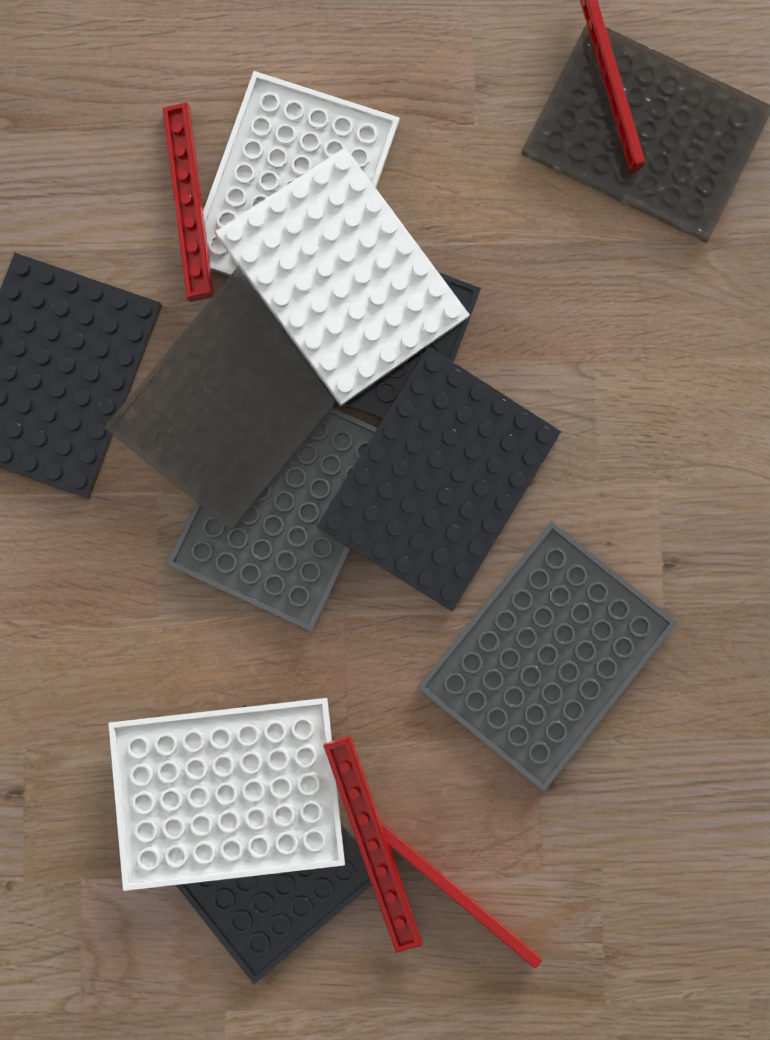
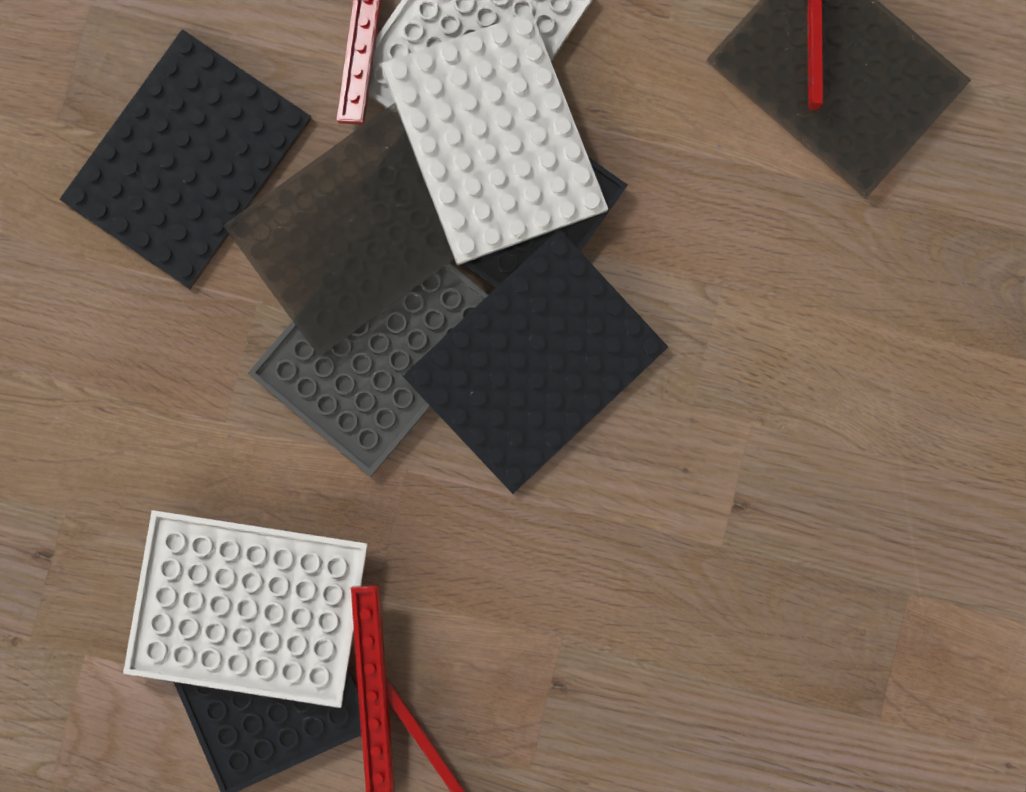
camera: 20 degrees right, 0 degrees up
(547, 655) = (593, 561): dark grey plate -> none

